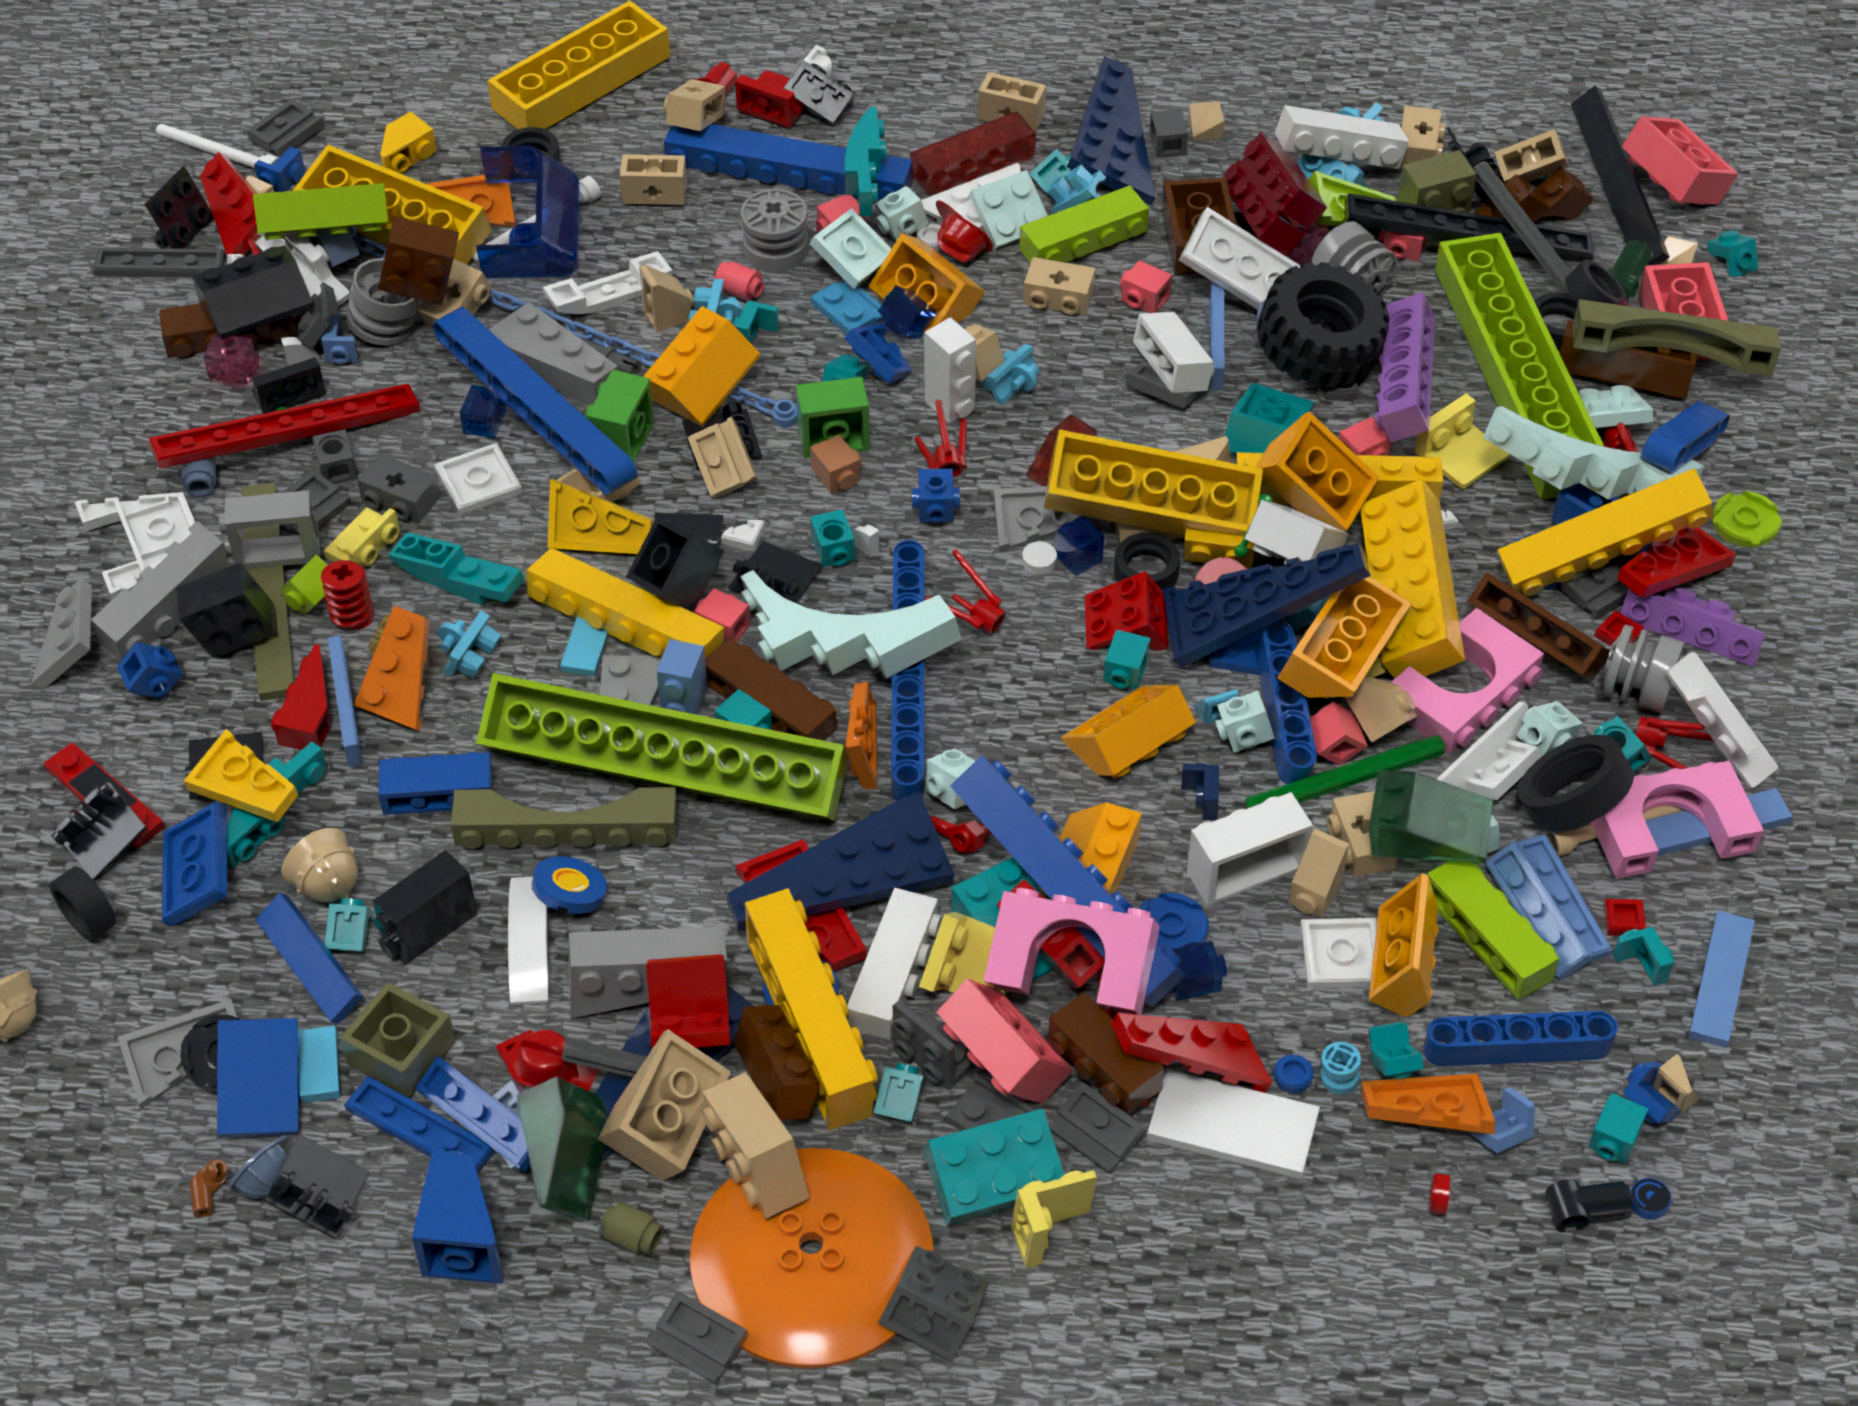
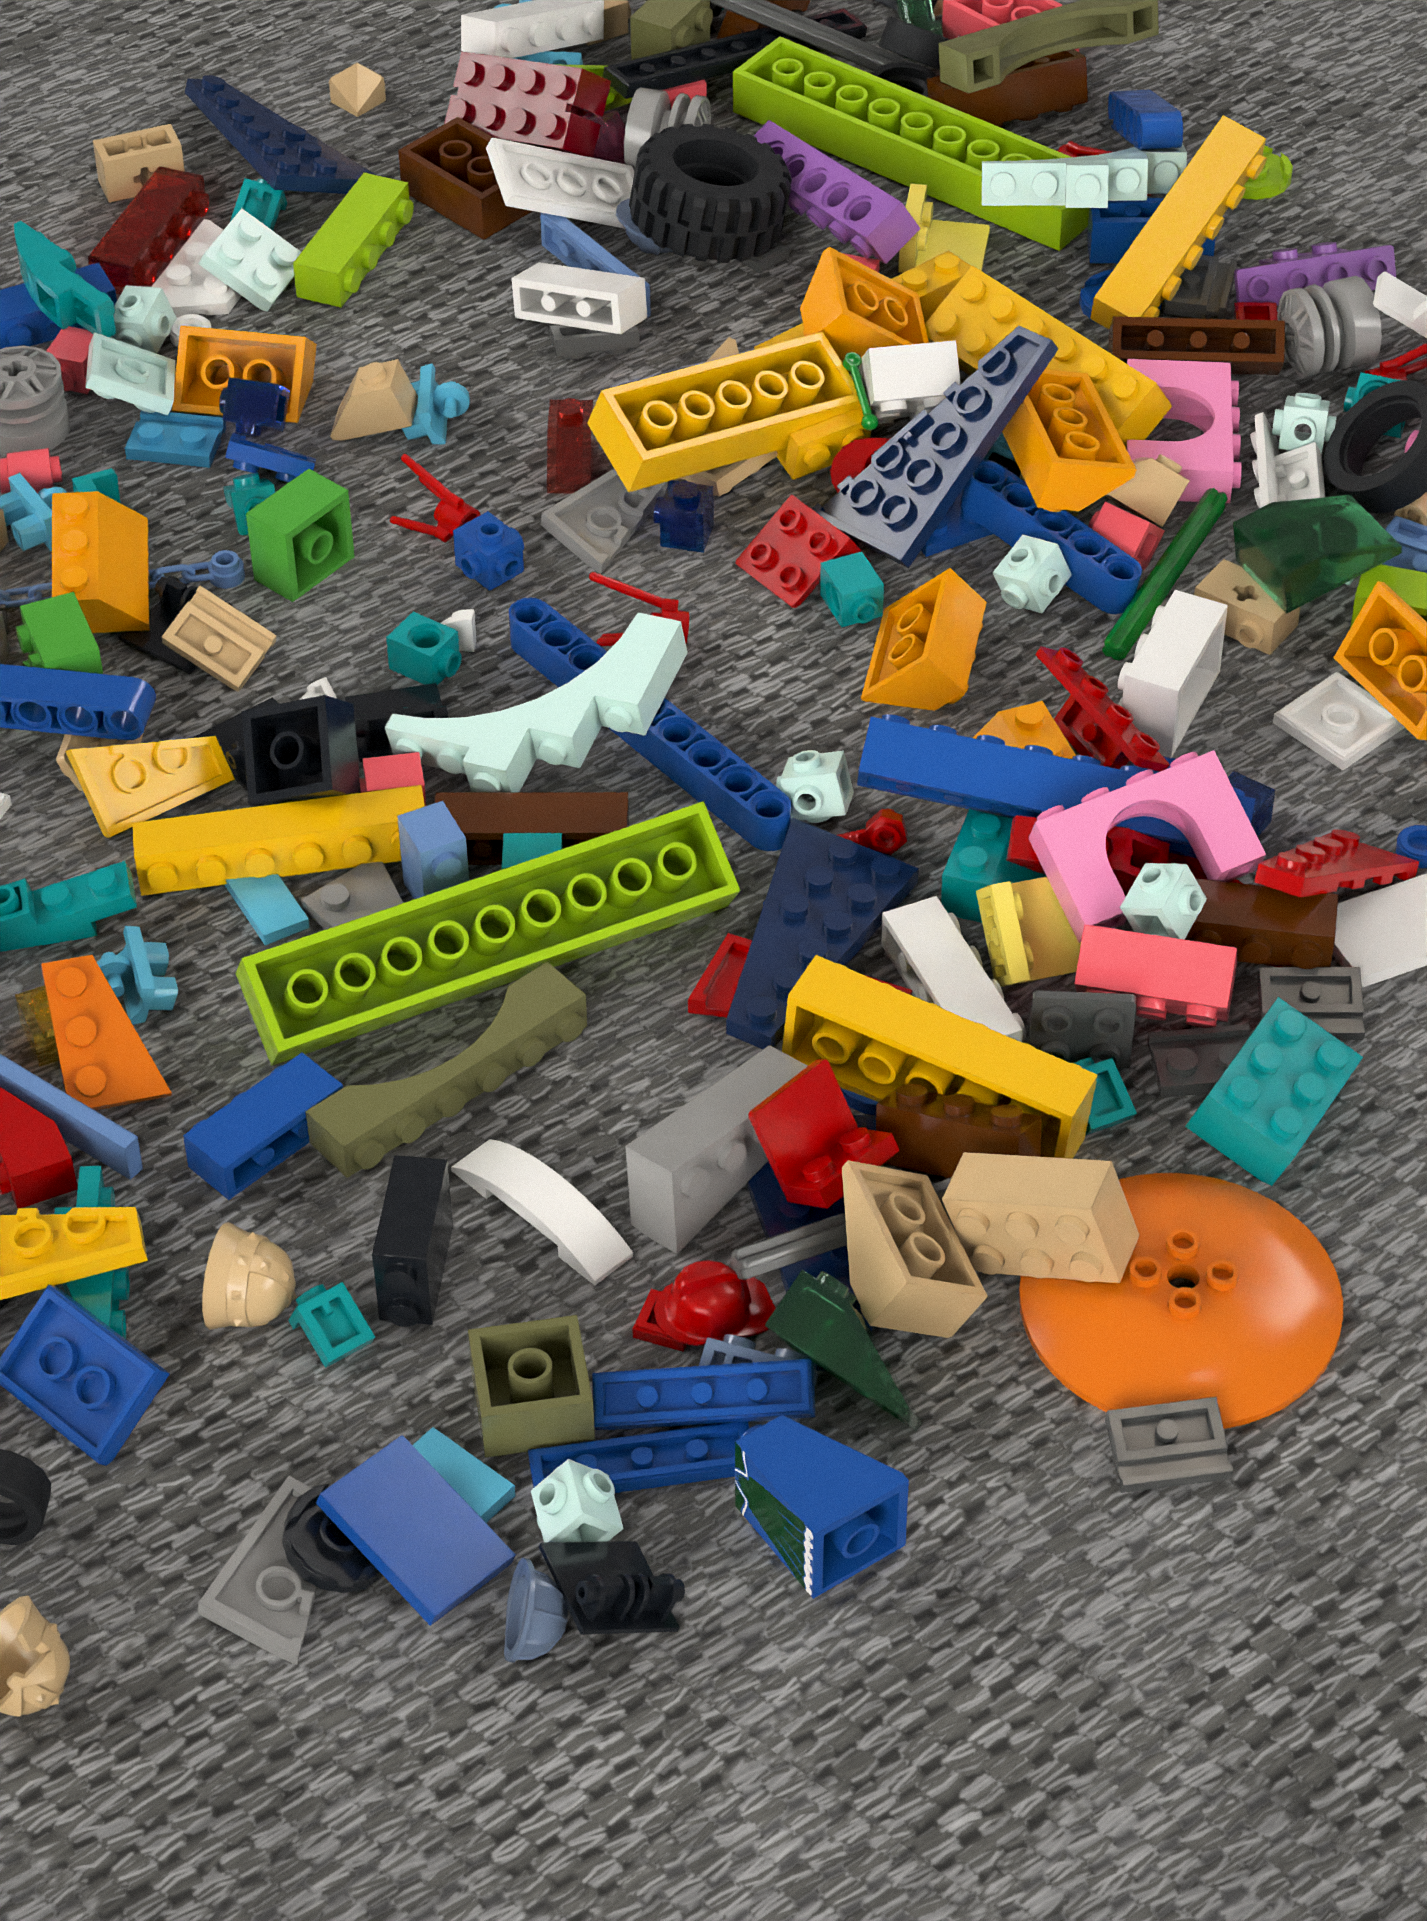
camera: 40 degrees left, 5 degrees down
(205, 1184) = (471, 1683): dark orange arm -> none
(309, 958) = (322, 1382): blue tile -> none
(347, 1127) = (576, 1505): none -> light aqua brick
(569, 884) = (533, 1126): blue tile -> none
(631, 1228) = (986, 1394): olive brick -> none
(835, 464) = (344, 582): nougat brick -> none
(862, 736) = (654, 783): orange wing -> none
(934, 1303) = (1362, 1250): dark grey bracket -> none
(950, 369) = (386, 420): white brick -> none
(959, 236) = (226, 302): red piece -> none
(1035, 997) = (1164, 900): none -> light aqua brick
(1039, 557) = (651, 554): white tile -> none
(1044, 1203) = (1374, 1106): light yellow bracket -> none
(1059, 286) = (385, 304): tan brick -> none
(1082, 188) = (315, 205): medium azure hips -> none
(1146, 287) = (475, 261): coral brick -> none
(1152, 545) = (758, 478): black tyre -> none
(1168, 133) = (334, 117): dark grey brick -> none
(1172, 844) = (1094, 721): none -> red bracket
(1205, 781) = (1054, 637): dark blue bracket -> none
(1208, 706) = (982, 578): medium azure slope -> none
(1262, 417) = (738, 310): teal slope -> none
(1319, 874) = (1257, 656): tan slope -> none
(1616, 406) = (1054, 130): light aqua plate -> none
(1675, 561) = (1250, 233): red wing -> none

